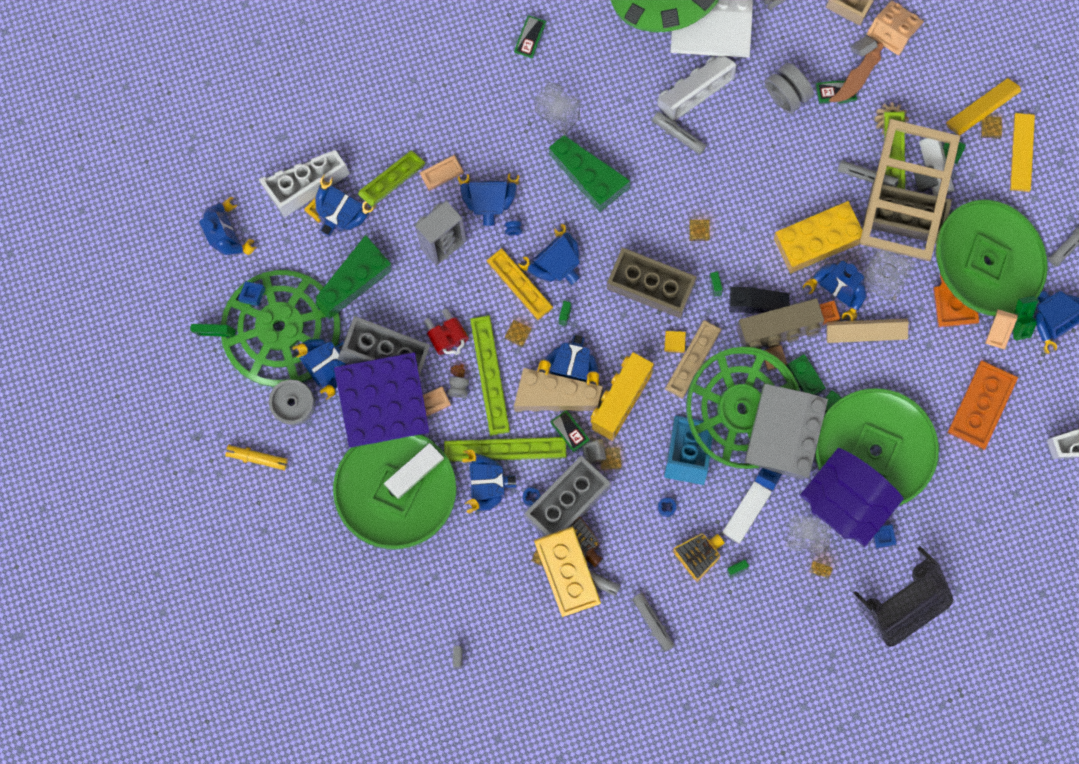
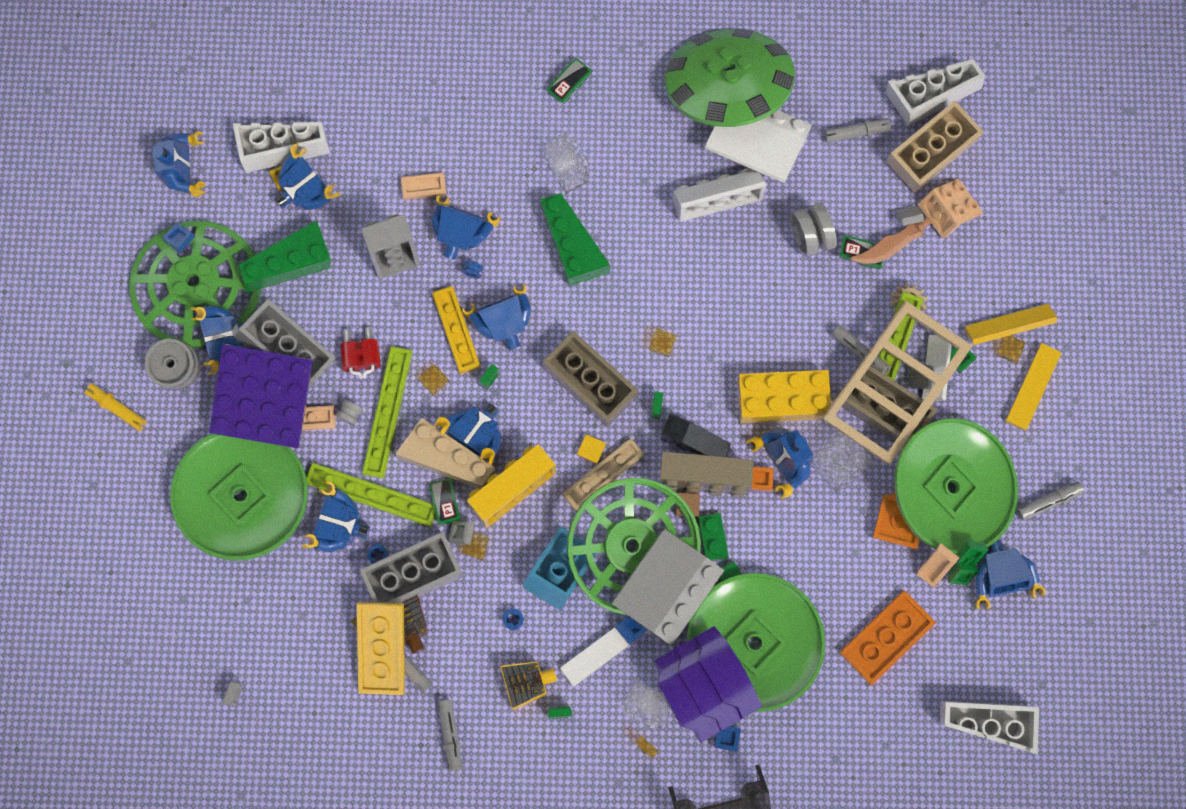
camera: 15 degrees right, 0 degrees up
(213, 330) = (124, 260): green tile -> none
(391, 178) = (367, 172): lime tile -> none
(413, 471) = (265, 482): white tile -> none
(458, 371) = (356, 395): clear orange rock -> none
(679, 133) = (677, 227): light grey pin -> none
(867, 330) = (796, 513): tan tile -> none

